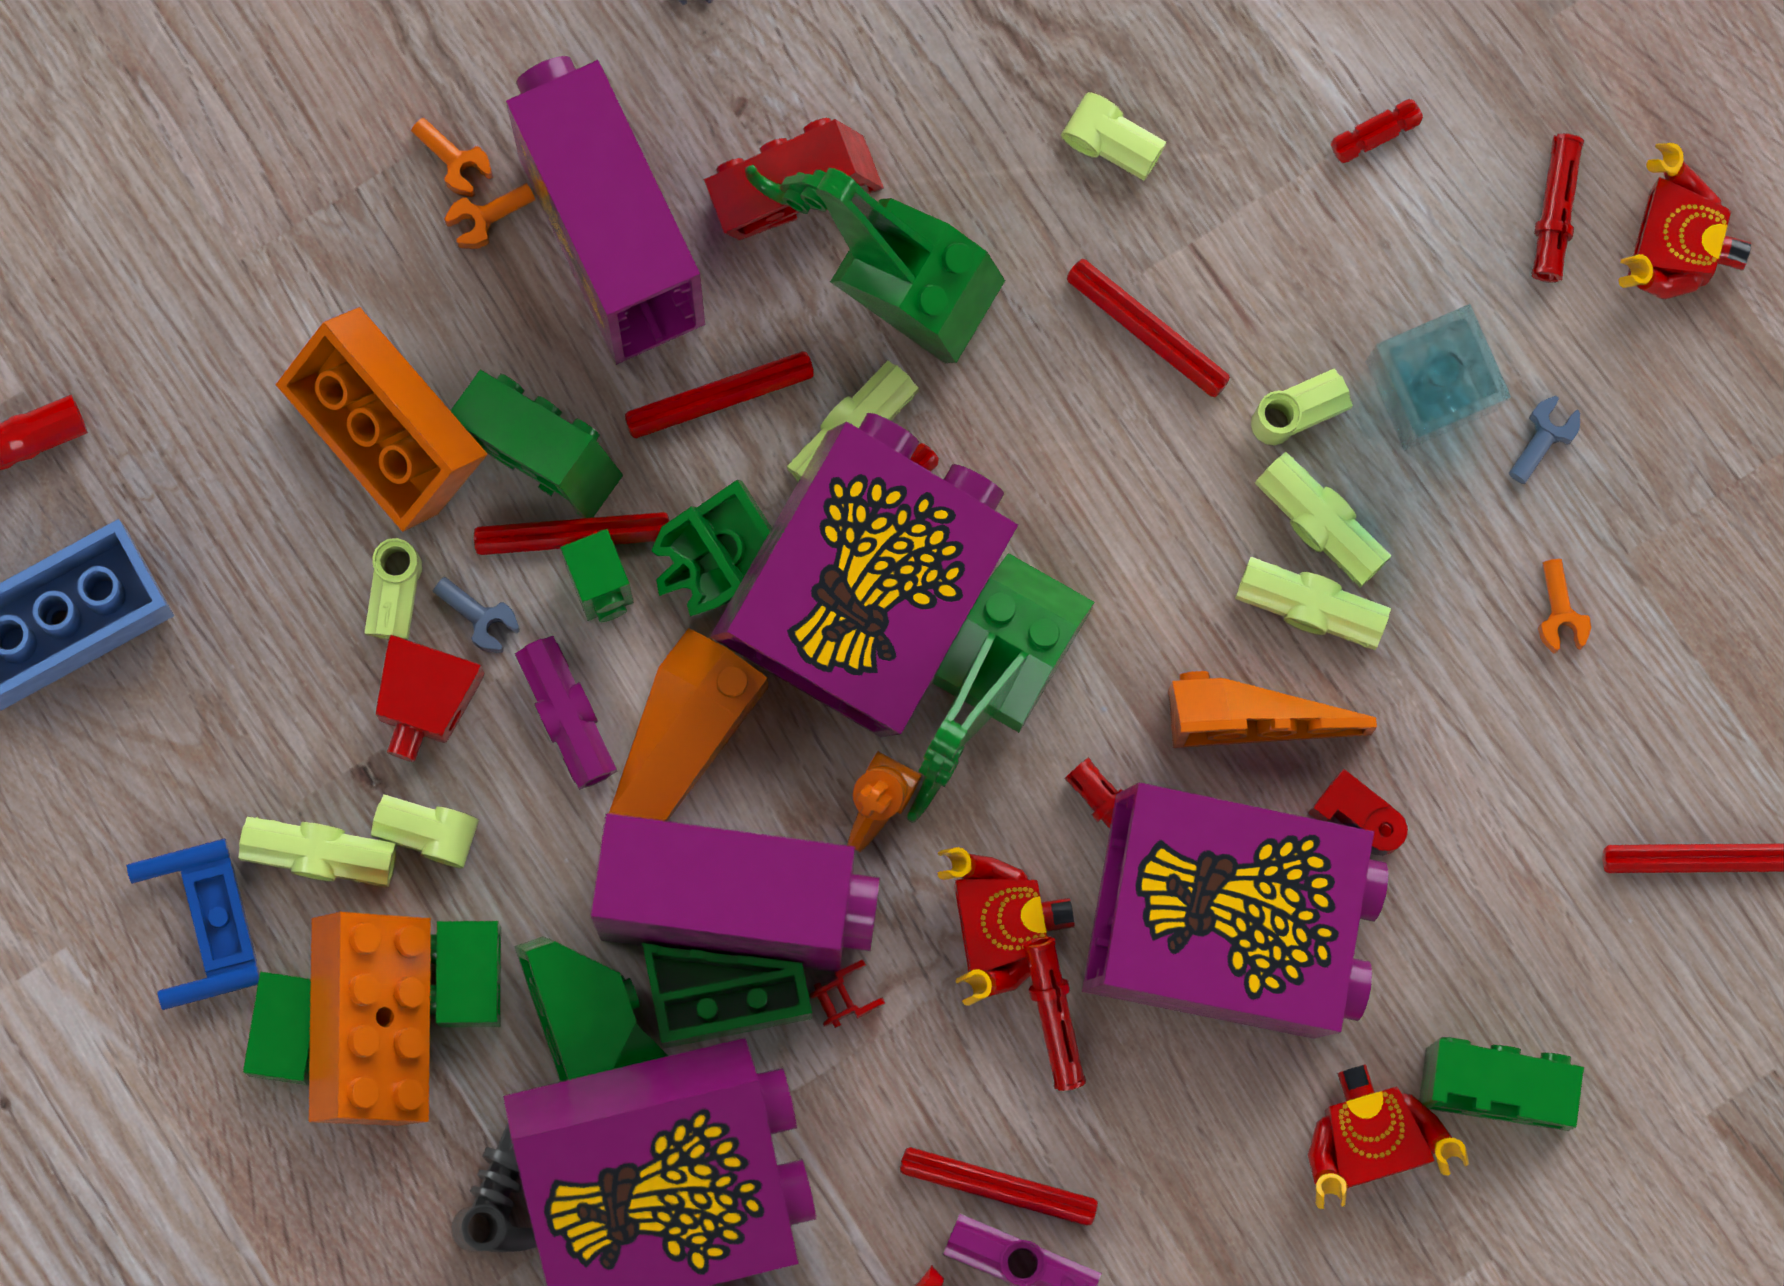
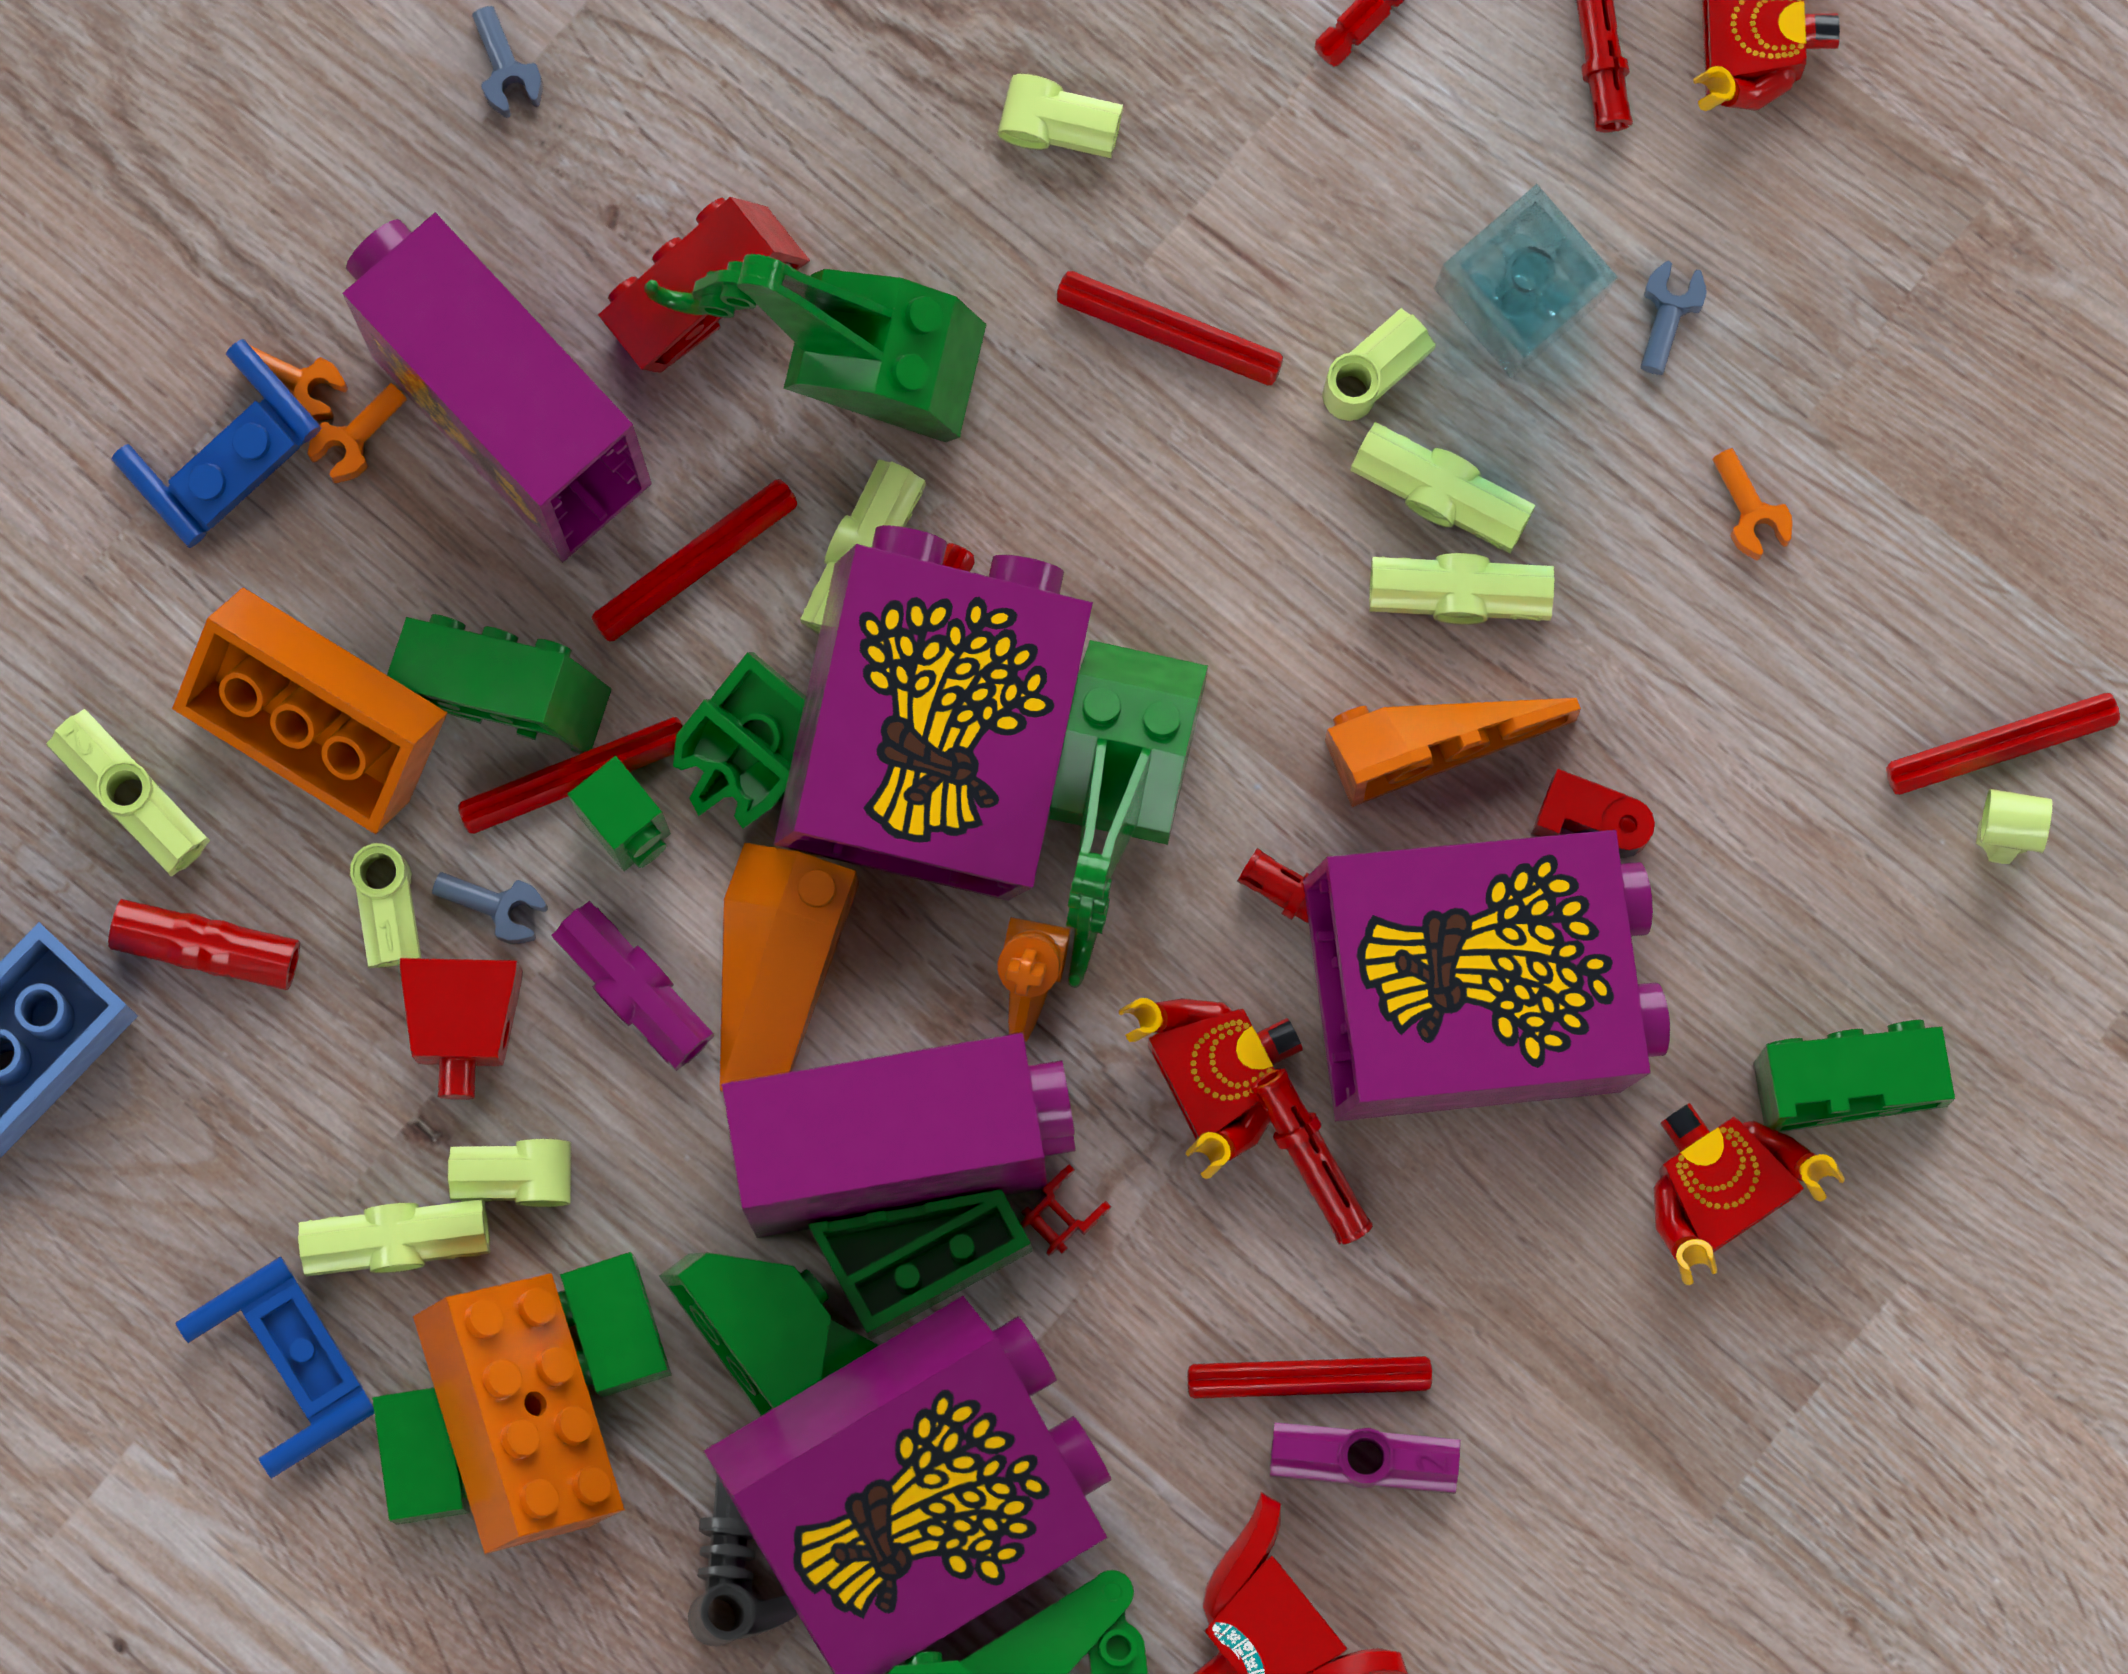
camera: 10 degrees left, 0 degrees up
(233, 465) = (105, 765): none -> yellowish green piece
(242, 576) = (204, 944): none -> red axle
(383, 206) = (232, 461): none -> blue plate
(1690, 925) = (2013, 825): none -> yellowish green piece

